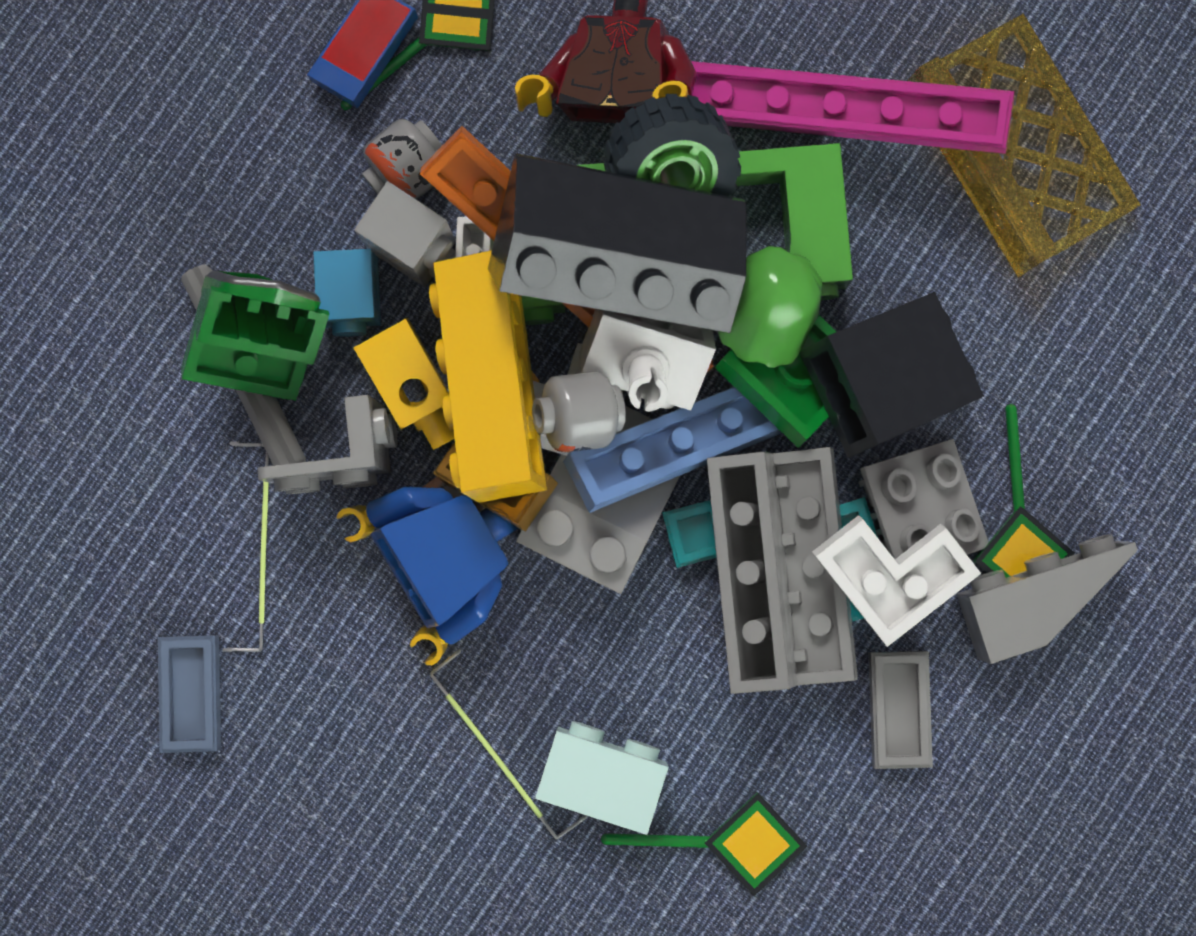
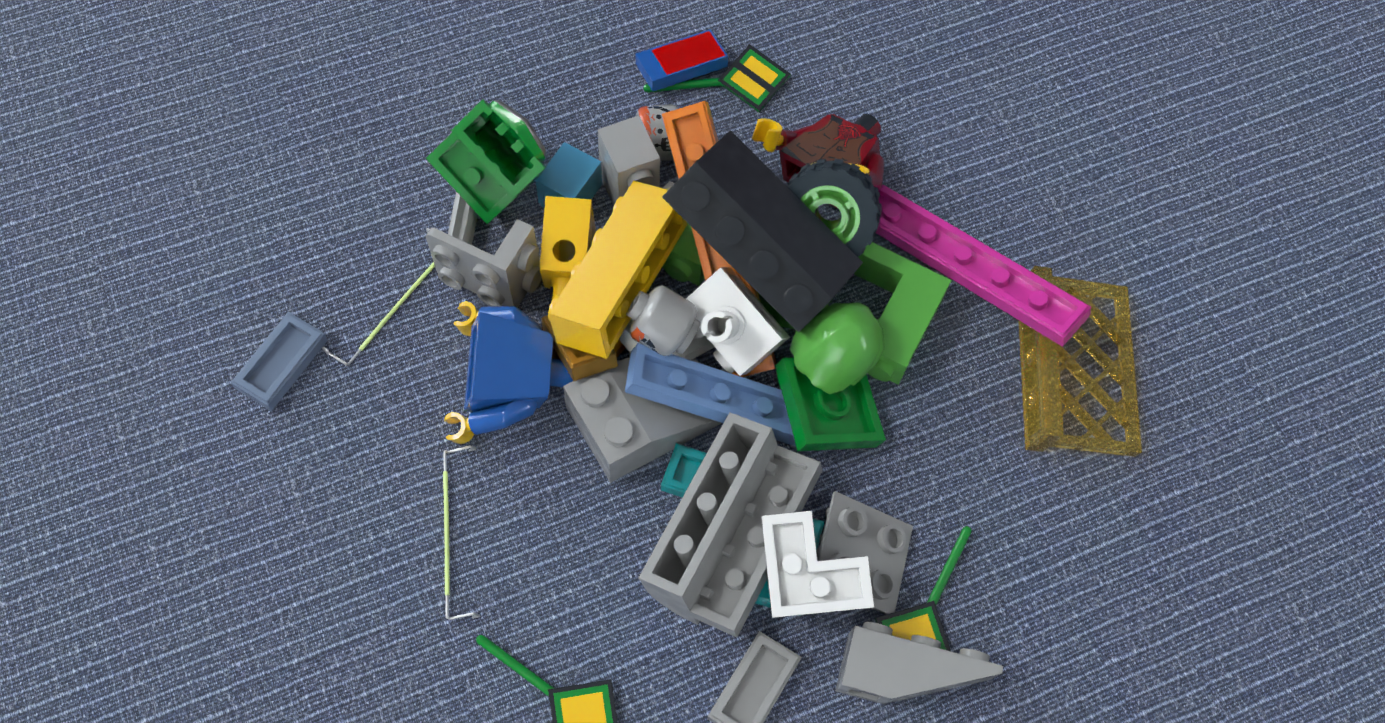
camera: 25 degrees right, 20 degrees down
(603, 778) = (509, 590): light aqua brick -> none
(891, 374) = (894, 443): black brick -> none

